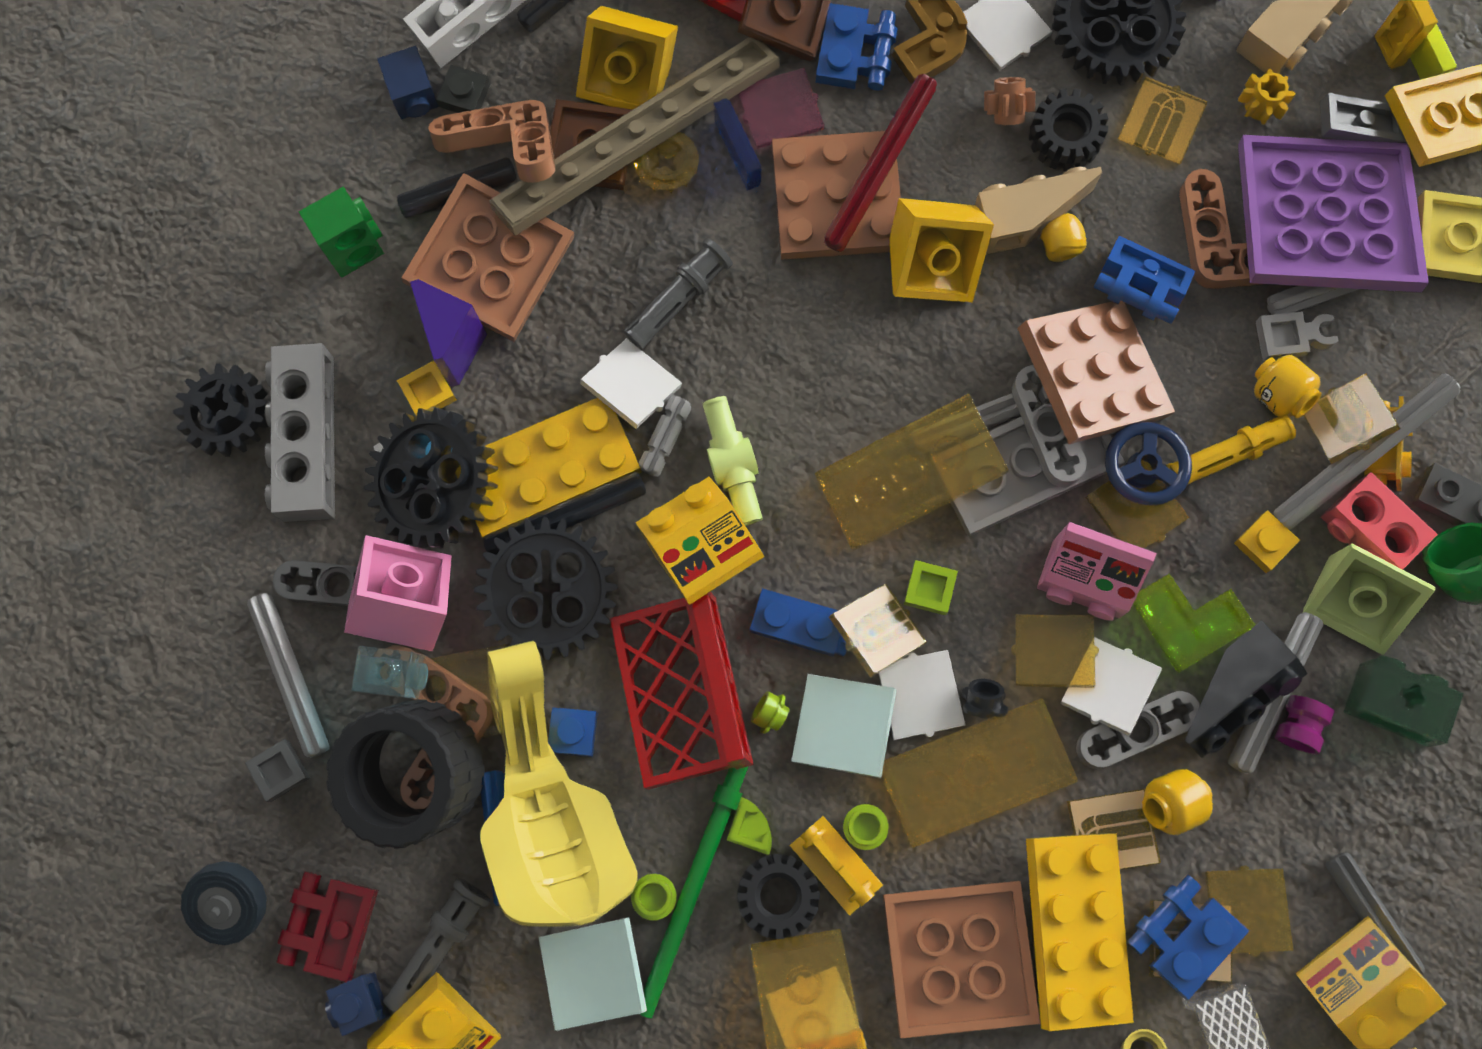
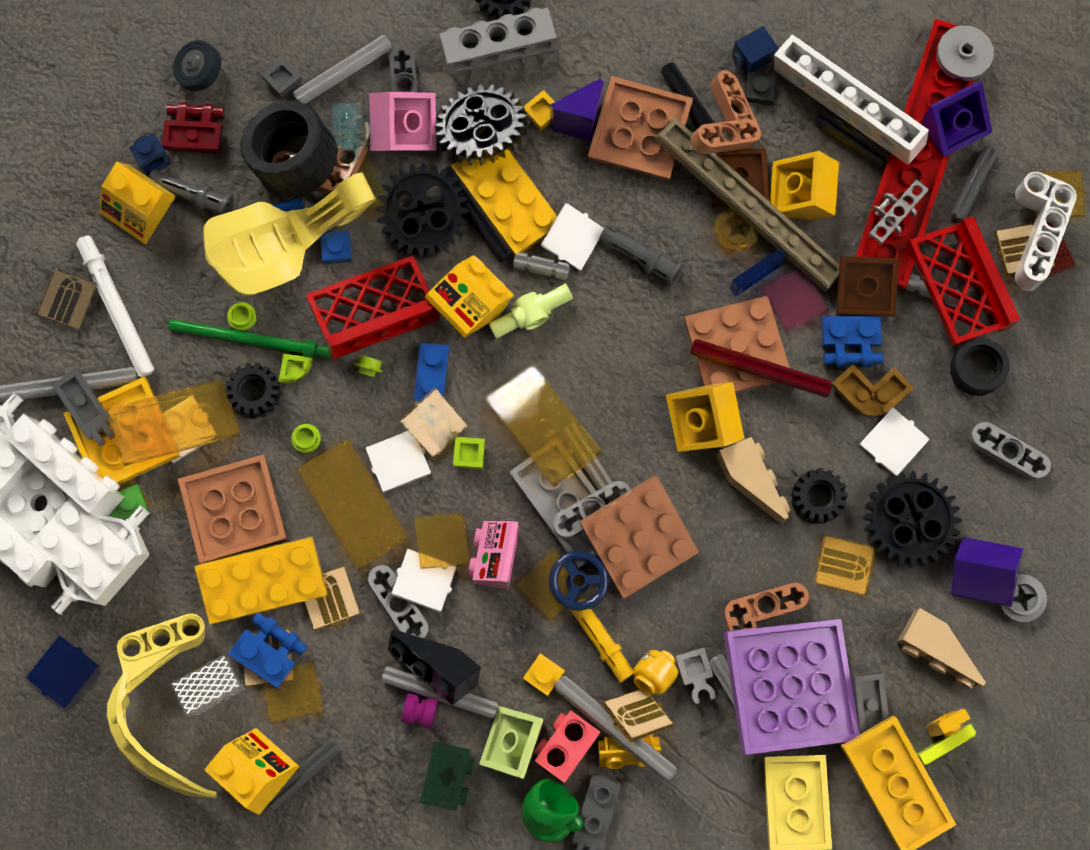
camera: 75 degrees right, 0 degrees up
(343, 230) = (634, 32): green brick -> none
(592, 974) = (188, 288): light aqua tile -> none
(836, 865) = (279, 424): yellow hinge -> none
(844, 725) = (367, 412): light aqua tile -> none
(984, 699) = (400, 499): black plate -> none
(1009, 101) = (830, 450): nougat gear -> none
(1063, 238) = (734, 504): yellow piece -> none
(1149, 272) = (721, 565): blue plate -> none
(1177, 802) = (353, 632): yellow head -> none
(1185, 633) = (469, 625): clear neon green plate -> none
(1266, 96) = (880, 625): yellow gear -> none

